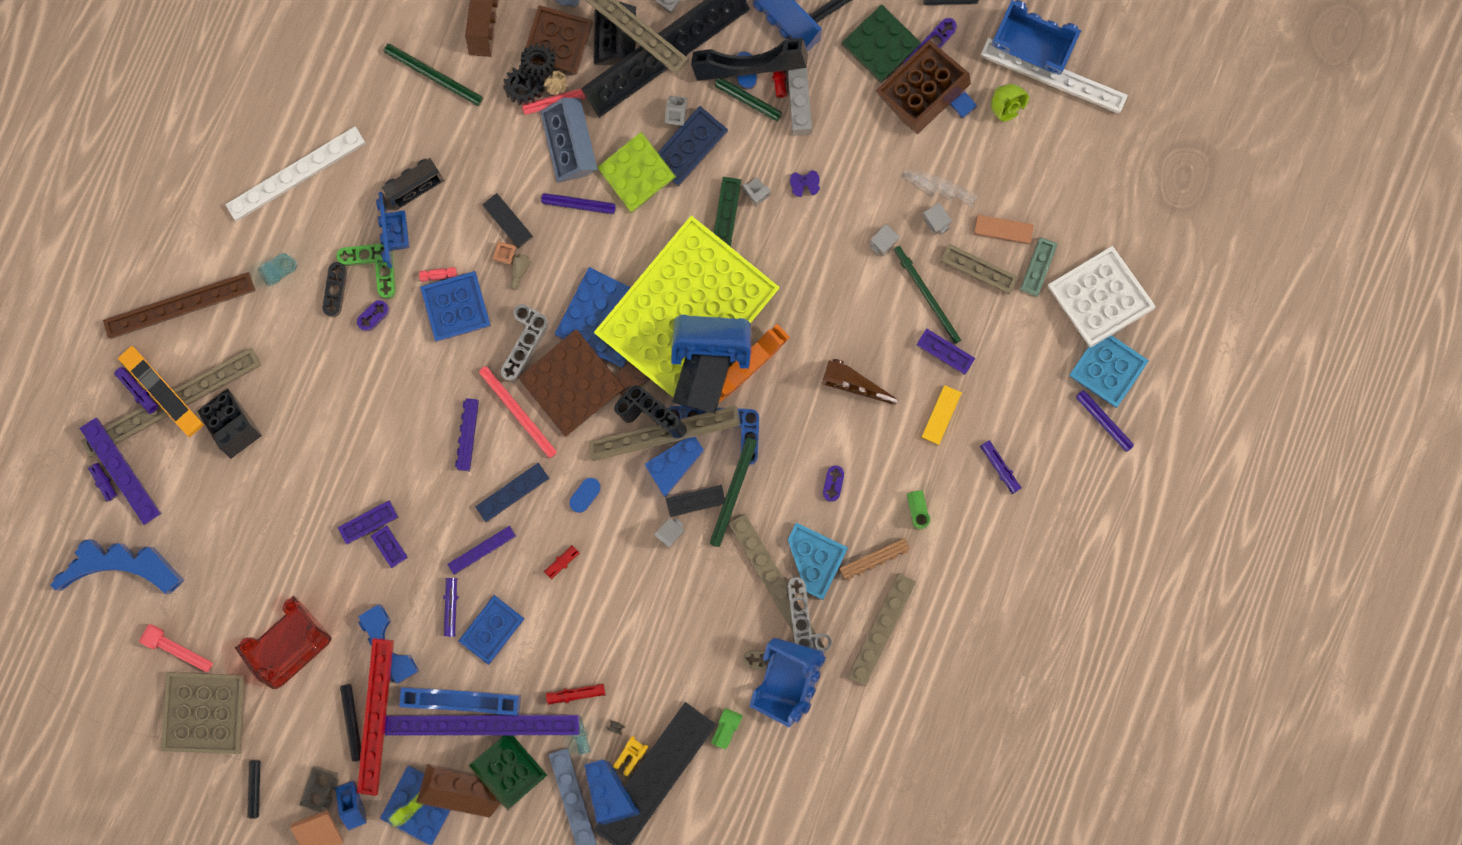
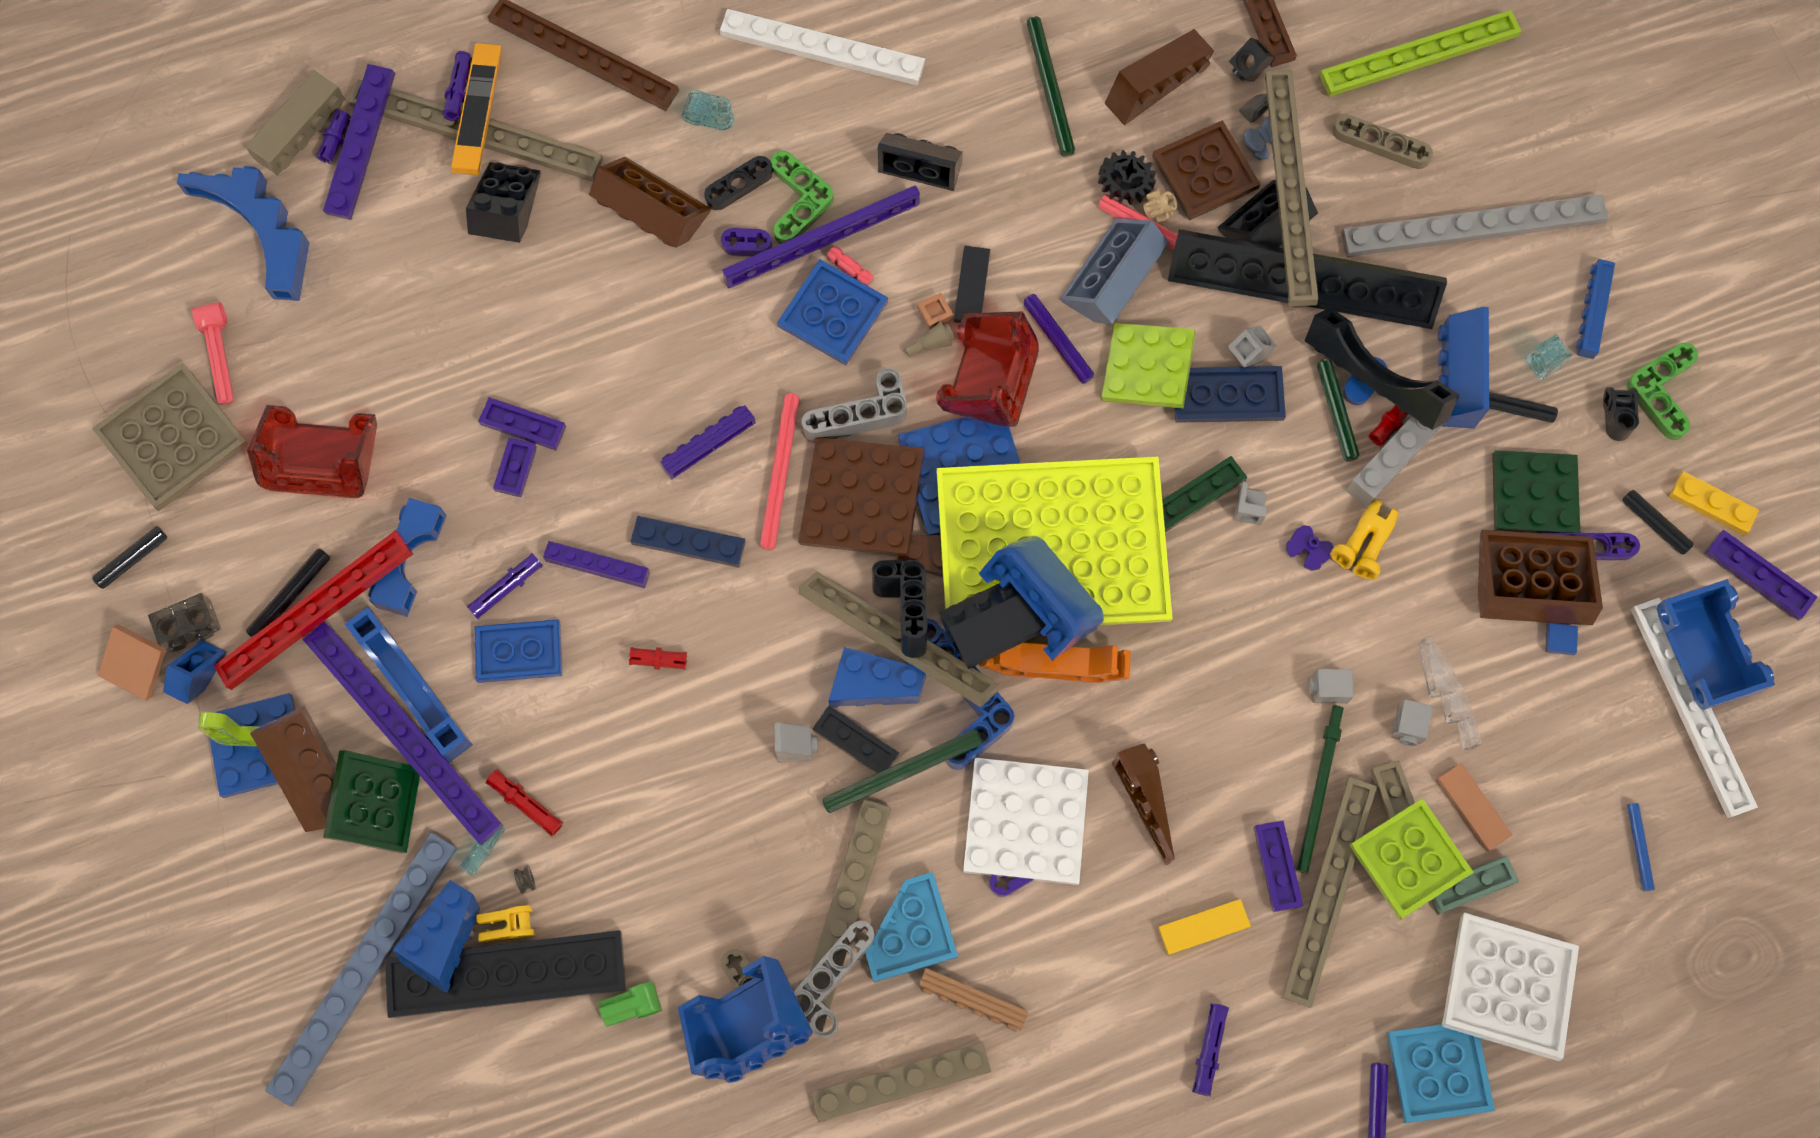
camera: 45 degrees right, 10 degrees down
(76, 495) = (295, 123): none -> dark tan brick
(301, 346) = (648, 201): none -> reddish brown slope
(394, 230) = (853, 183): blue bracket -> none
(408, 274) = (821, 237): none -> dark purple tile
(537, 52) = (1168, 155): black tyre -> none
(565, 254) = (993, 368): none -> clear red windscreen
(585, 495) = (754, 619): blue tile -> none
(812, 453) = (1026, 821): none -> white plate
(828, 139) = (1369, 523): none -> yellow piece
(918, 508) = (1075, 996): bright green piece -> none
(979, 338) = (1328, 893): none -> dark tan plate
(1001, 285) = (1411, 859): none -> lime plate
(1008, 100) = (1616, 682): lime cylinder -> none
(1094, 168) = (1641, 847): none -> blue piece

